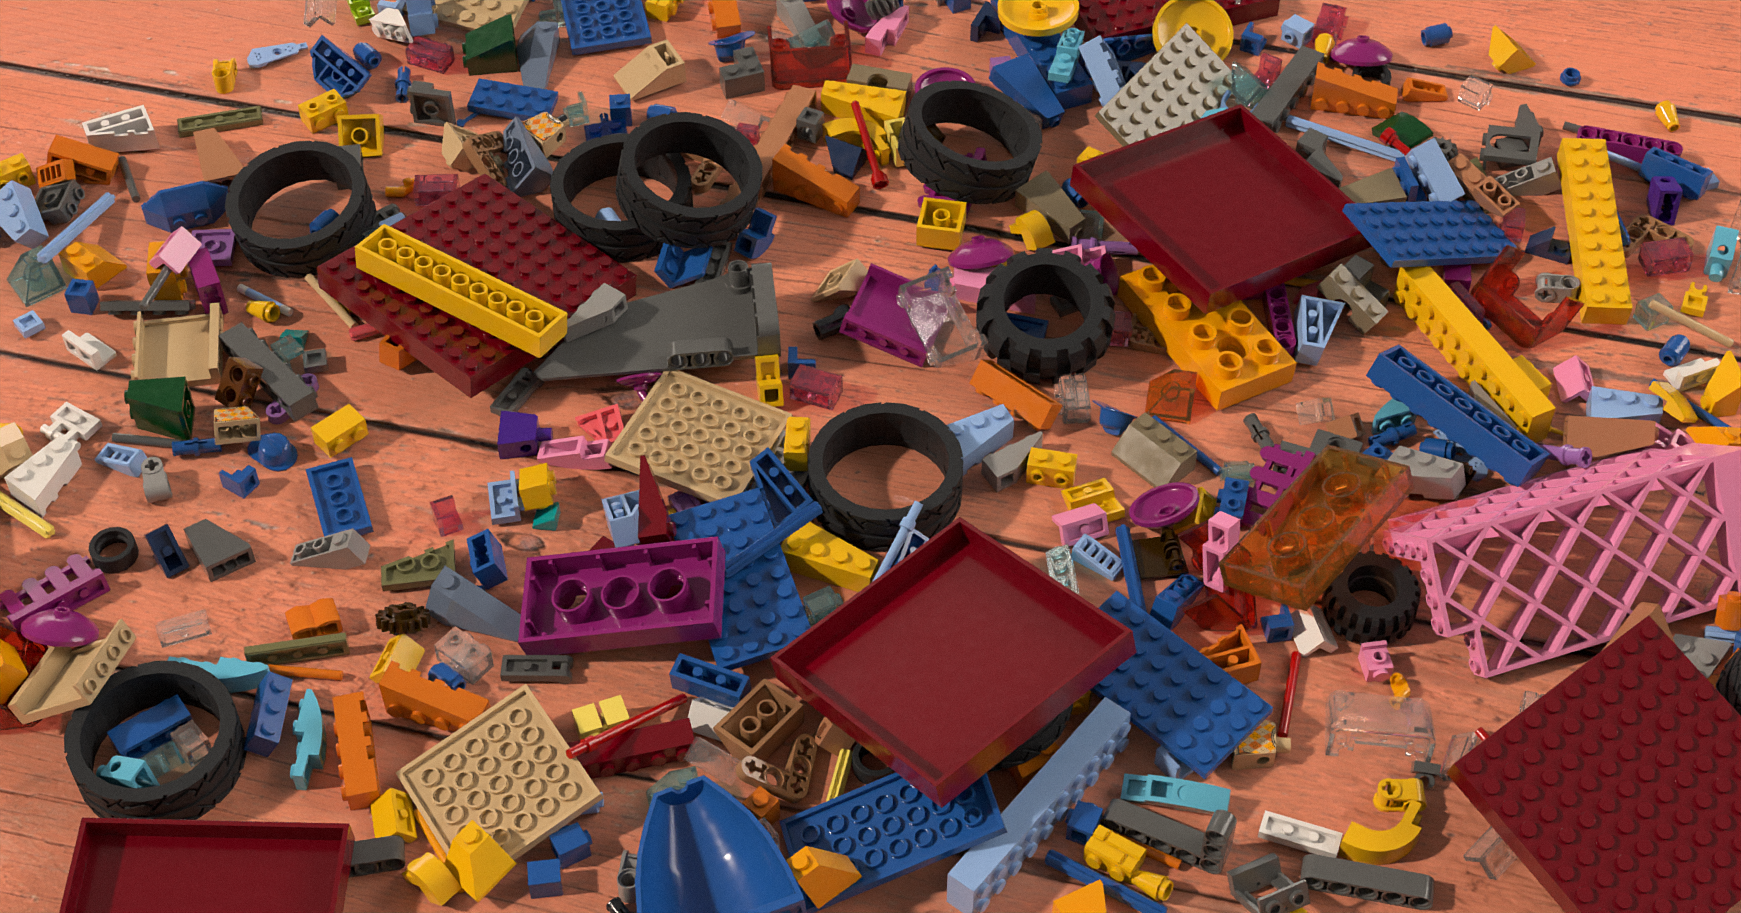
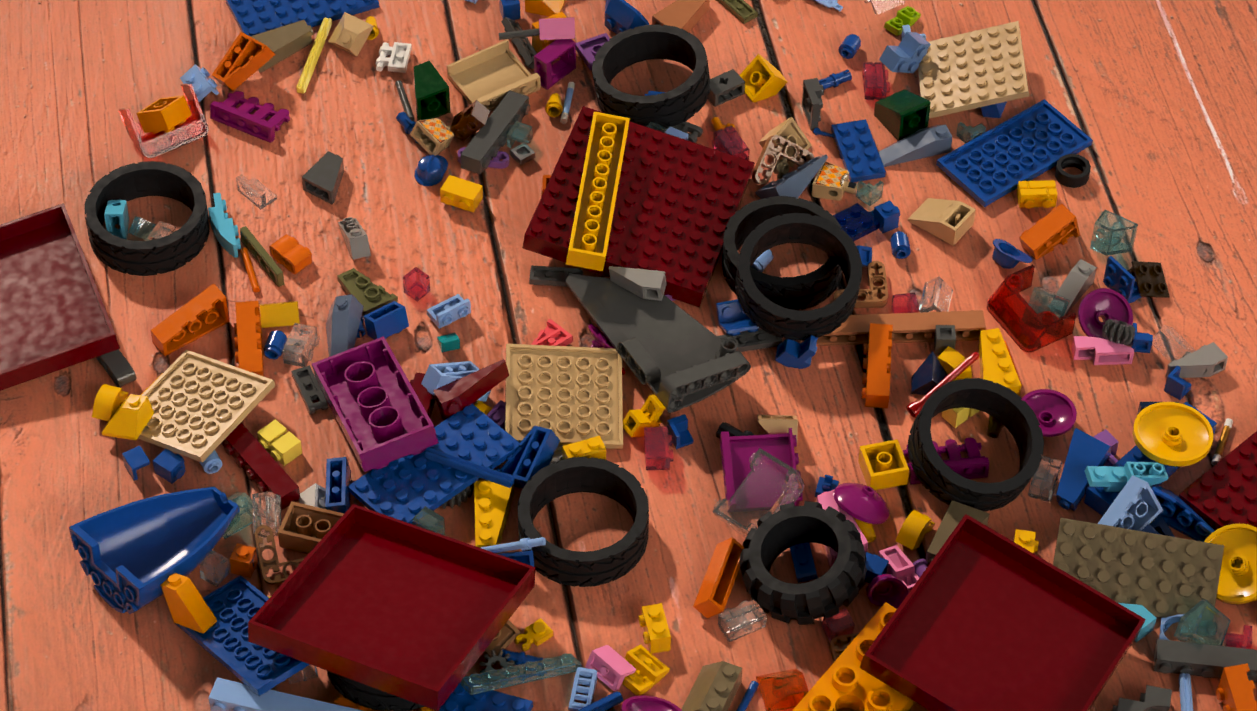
camera: 65 degrees right, 0 degrees up
(44, 474) = (342, 62): white wedge -> none
(60, 628) = (216, 130): magenta dish -> none
(70, 676) = (176, 148): tan panel -> none
(88, 349) = (467, 34): white panel -> none
(110, 536) = (300, 117): black tyre -> none
(124, 460) = (380, 97): light blue slope -> none
(149, 728) = (157, 208): blue brick -> none
(155, 480) = (367, 120): light grey piece -> none
(166, 550) = (309, 152): dark blue slope -> none
(240, 482) = (392, 165): blue panel -> none
(268, 714) = (200, 263): blue brick -> none
(299, 335) = (540, 133): teal slope -> none
(311, 741) = (178, 298): medium azure slope -> none
(322, 110) = (773, 48): yellow brick -> none
(337, 69) = (821, 36): blue wedge -> none
(339, 497) = (403, 222): blue plate -> none
(391, 25) = (886, 38): white slope -> none
(394, 815) = (152, 365): yellow panel -> none
(402, 618) = (312, 298): dark brown gear -> none
(520, 435) = (513, 293): dark purple torso -> none
(537, 486) = (464, 320): yellow brick -> none
(575, 453) = (513, 327): bright pink slope -> none
(591, 742) = (239, 435): red bar -> none
(744, 76) = (980, 279): dark grey brick -> none
(880, 78) = (1028, 356): dark tan arch -> none
(982, 434) = (662, 568): light blue wedge -> none
(1009, 464) = (641, 593): light grey slope -> none
(1113, 419) = (738, 650): blue piece -> none

